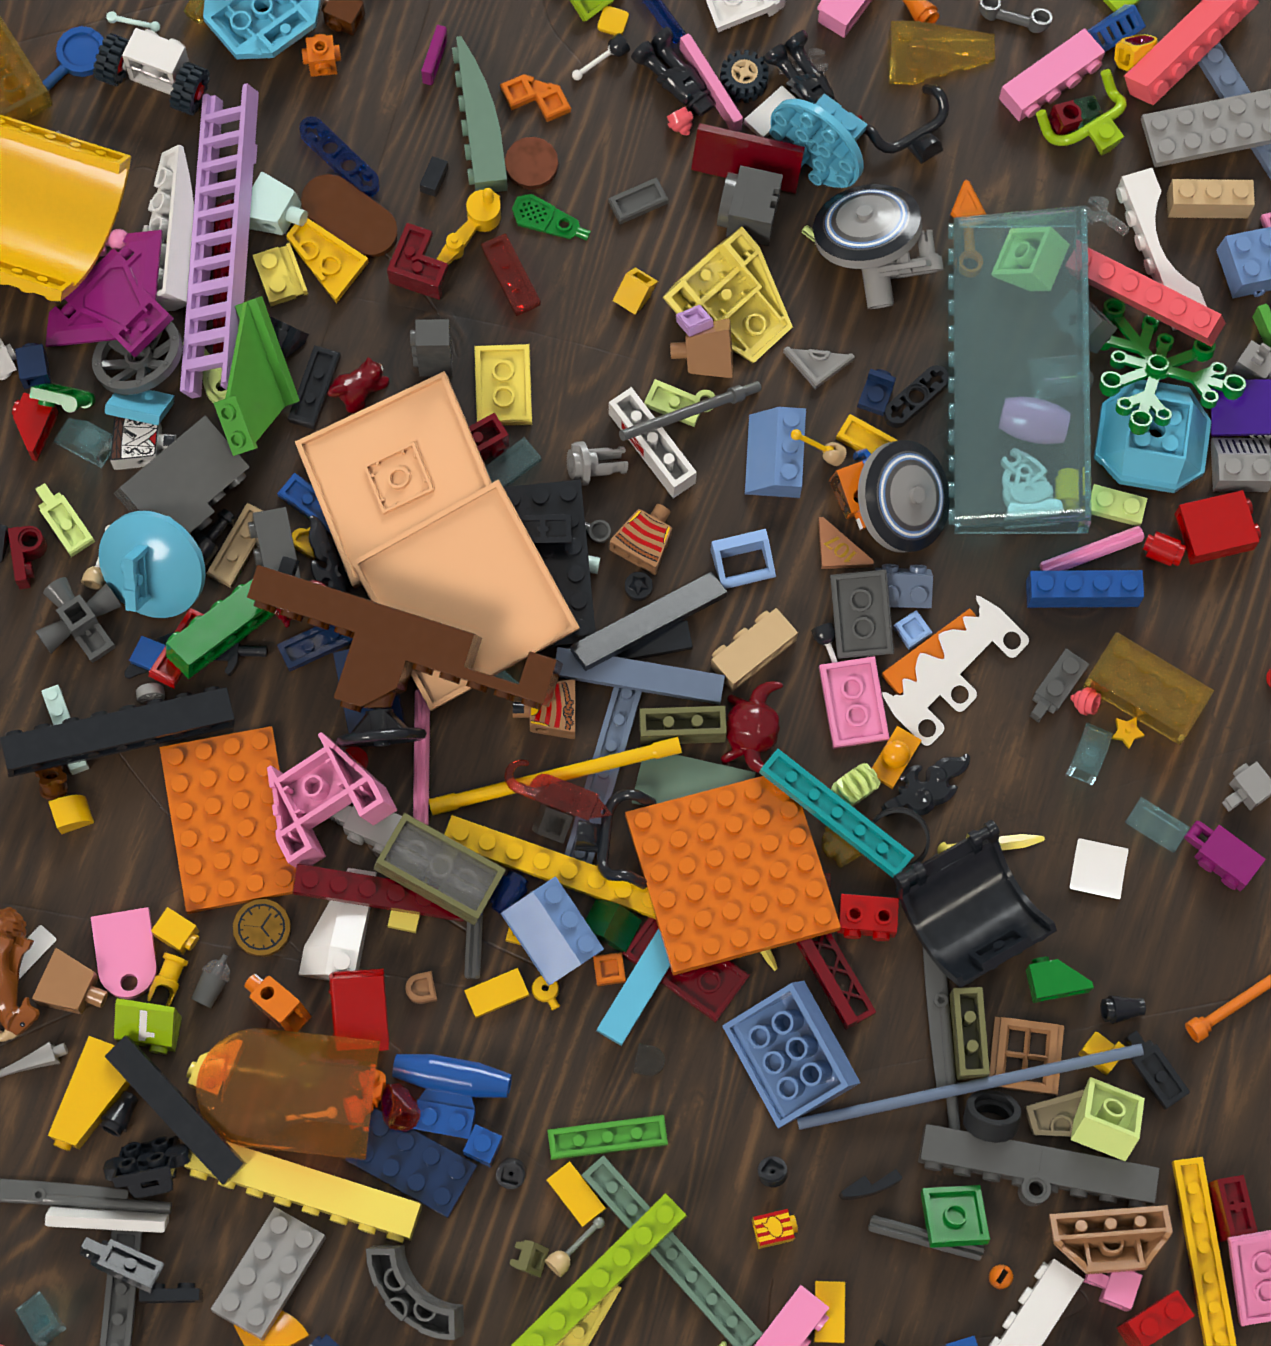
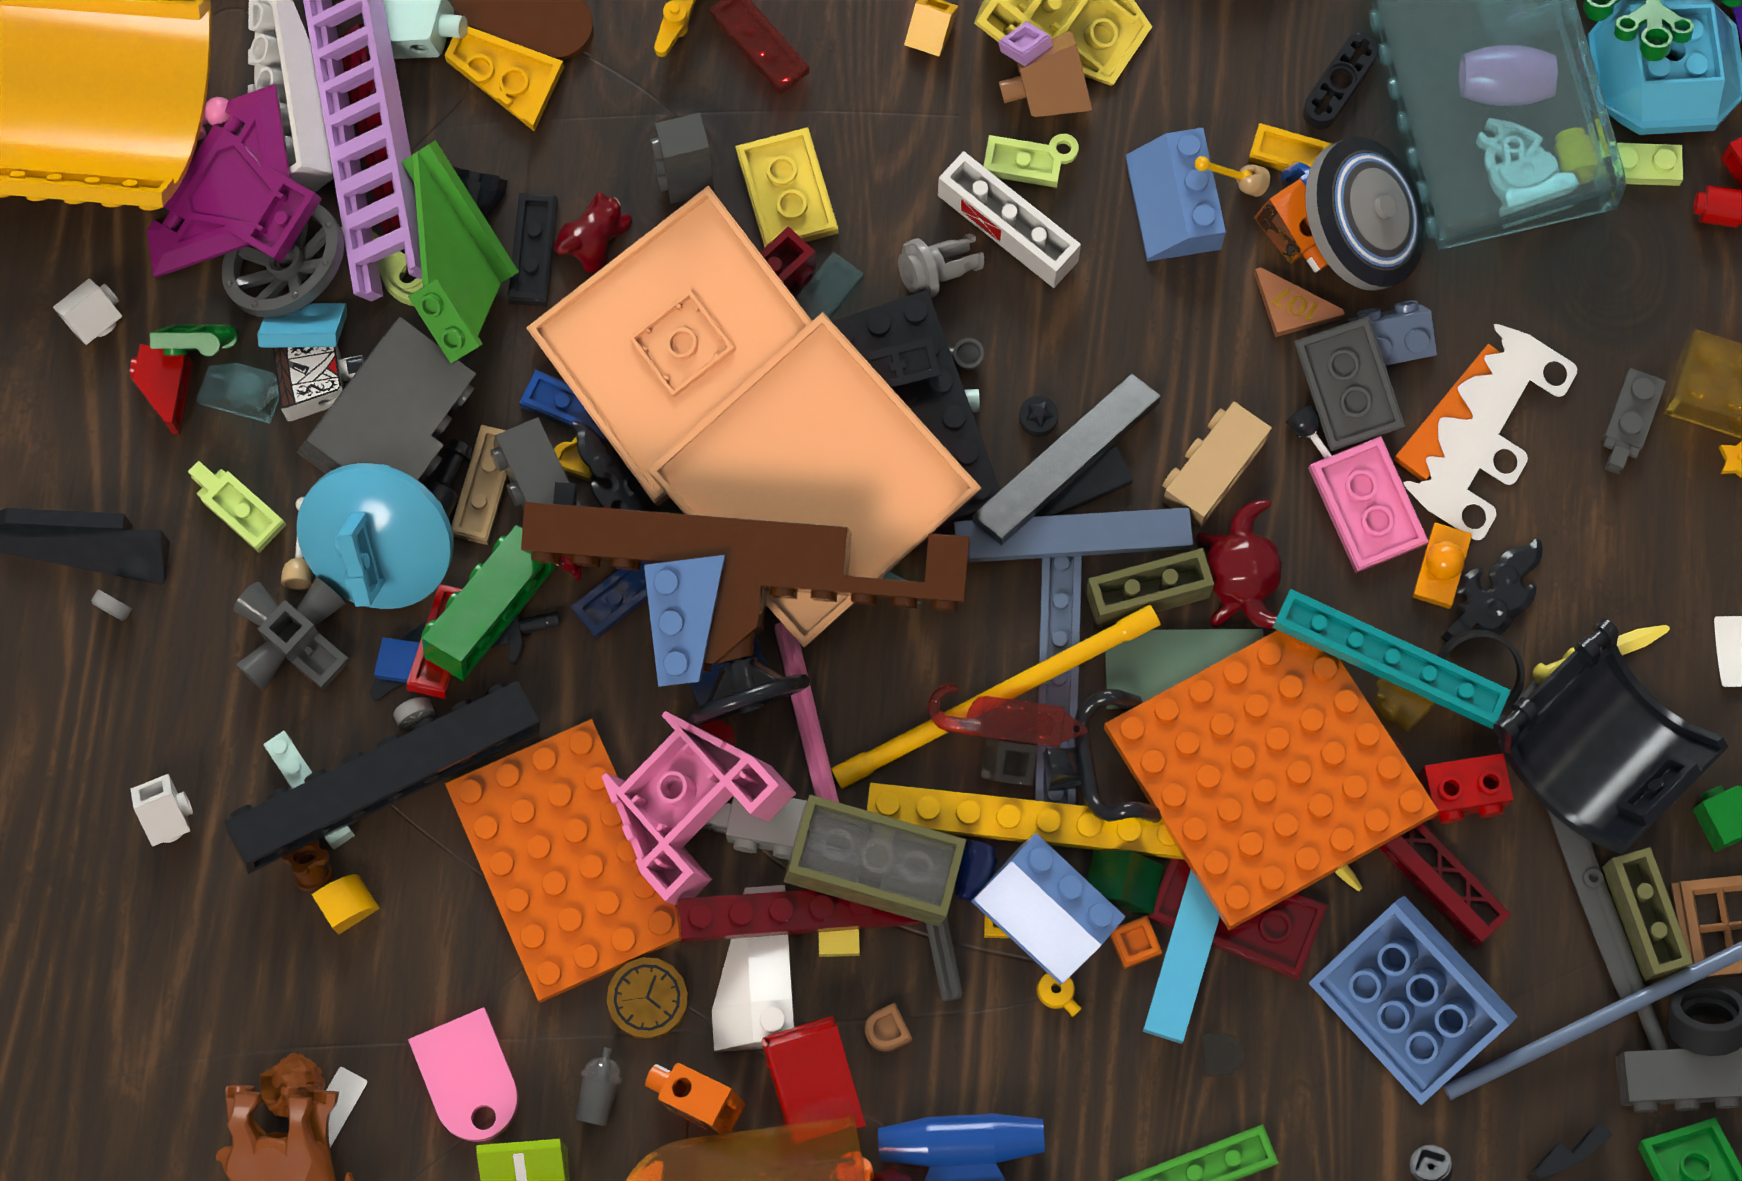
camera: 10 degrees left, 0 degrees up
(21, 554) = (192, 563): dark red plate -> none
(32, 365) = (142, 305): dark blue brick -> none
(68, 985) = (401, 1141): medium nougat torso -> none
(168, 976) = (536, 1096): yellow piece -> none
(176, 931) = (531, 1031): yellow brick -> none
(280, 274) = (448, 110): light yellow plate -> none
(346, 665) = (681, 615): none -> medium blue wing
(411, 267) = (629, 62): dark red panel -> none
(496, 993) = (991, 1011): yellow tile -> none
(557, 718) = (973, 623): torso -> none
(644, 538) = (1030, 350): medium nougat torso -> none
(734, 395) = (1098, 133): dark grey bar -> none
(738, 545) = (1160, 329): light blue tile -> none
(817, 365) = (1198, 68): light grey tile -> none
(856, 784) = (1405, 612): yellowish green gear -> none
(877, 391) = (1287, 85): dark blue bracket -> none
(912, 630) = (1419, 390): light blue tile -> none
(1085, 588) = (1634, 282): blue brick -> none
(1087, 701) = (1676, 431): coral plate -> none
(1089, 753) = (1700, 501): clear light blue slope -> none
(1094, 550) = (1627, 232): bright pink axle -> none

